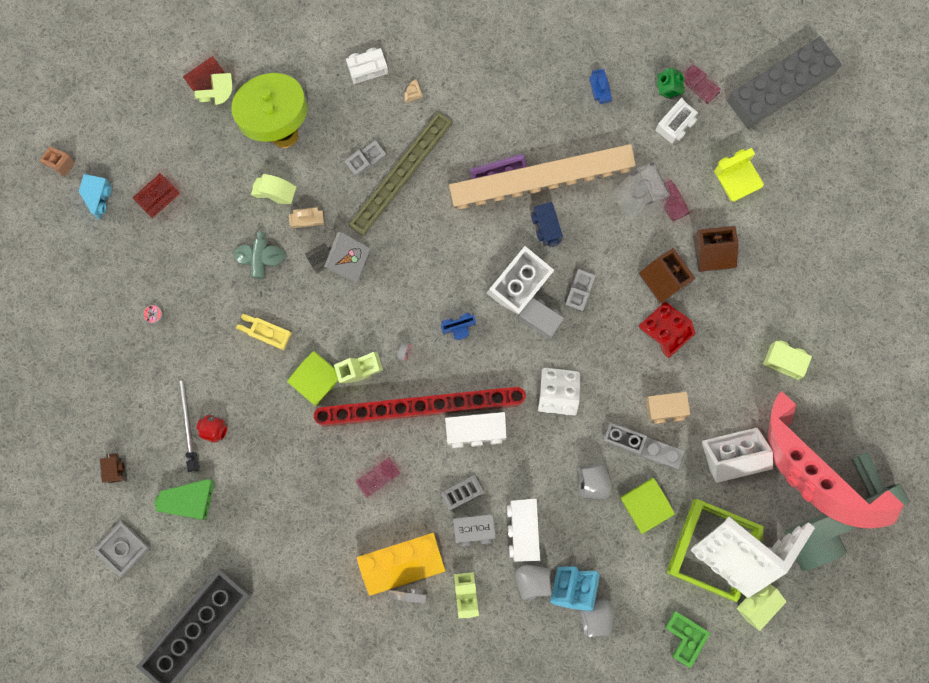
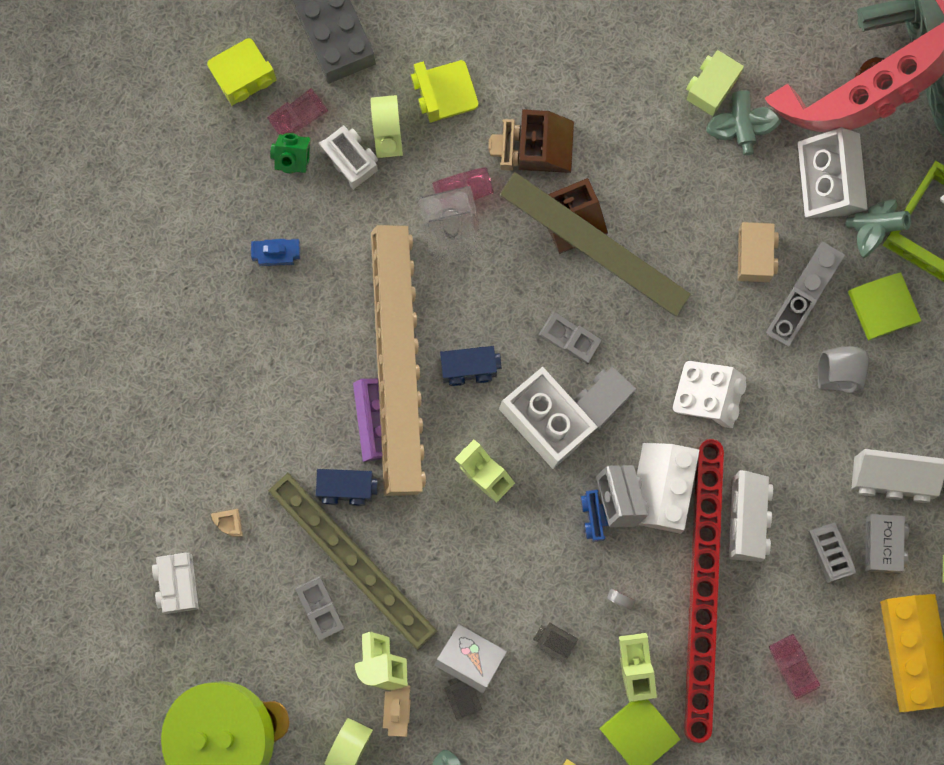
camera: 75 degrees left, 0 degrees up
(331, 199) = (379, 666): none -> yellowish green brick
(367, 312) = (555, 642): none -> clear smoke brick
(450, 158) = (345, 485): none -> dark blue brick
(474, 339) = (622, 496): none -> light grey brick
(476, 245) = (484, 471): none -> yellowish green brick
(486, 369) = (667, 484): none -> white slope
(648, 291) = (594, 244): none -> olive tile
(668, 328) = (645, 228): red bracket -> none
(705, 486) = (874, 224): none -> sand green plant
(706, 138) = (386, 126): none -> yellowish green brick
(708, 220) = (504, 145): none -> tan piece
(721, 42) = (241, 71): none -> neon yellow bracket
(762, 385) = (743, 122): none -> sand green plant

